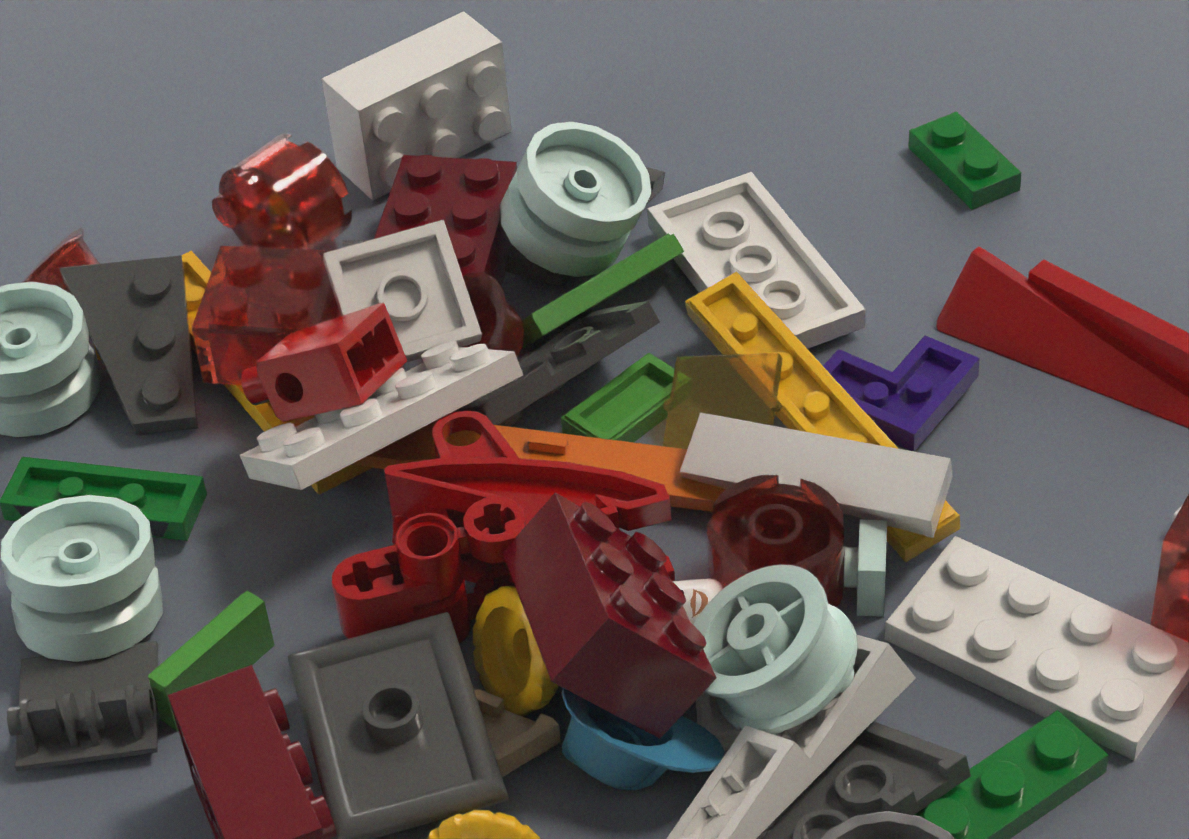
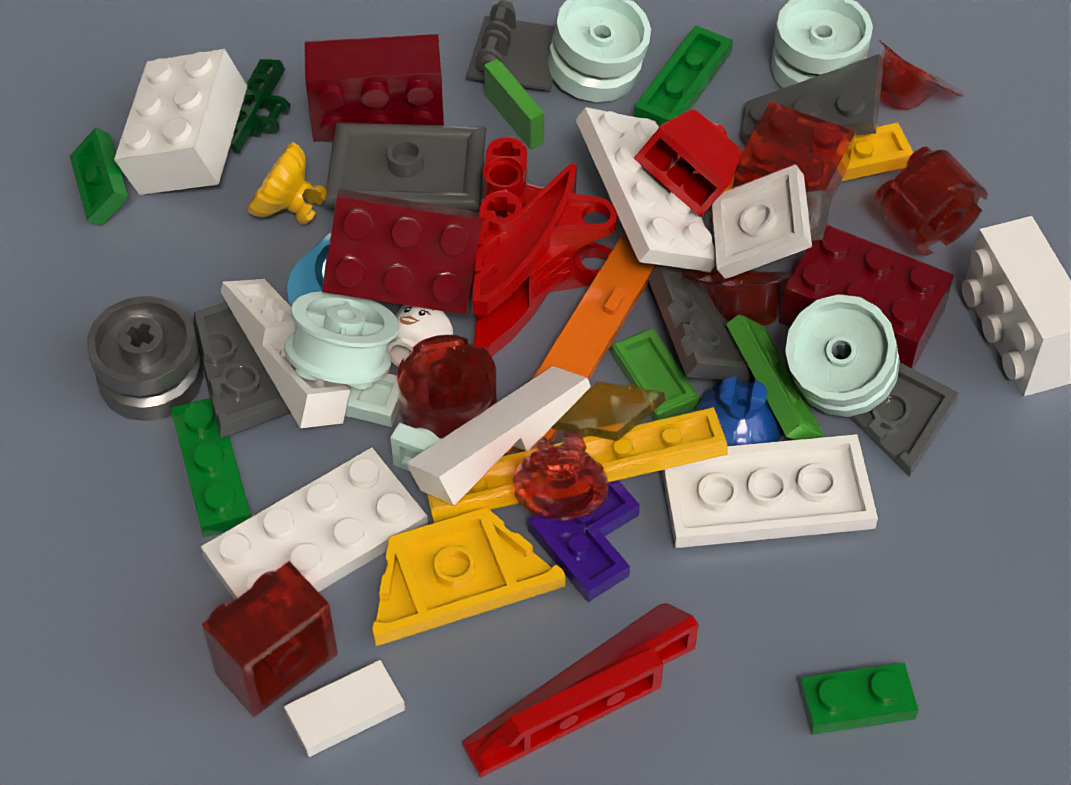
camera: 105 degrees right, 10 degrees up
(676, 332) = (742, 412): none -> blue hair
(868, 377) = (561, 480): none -> clear red hair
(1027, 492) = (456, 573): none -> yellow wing

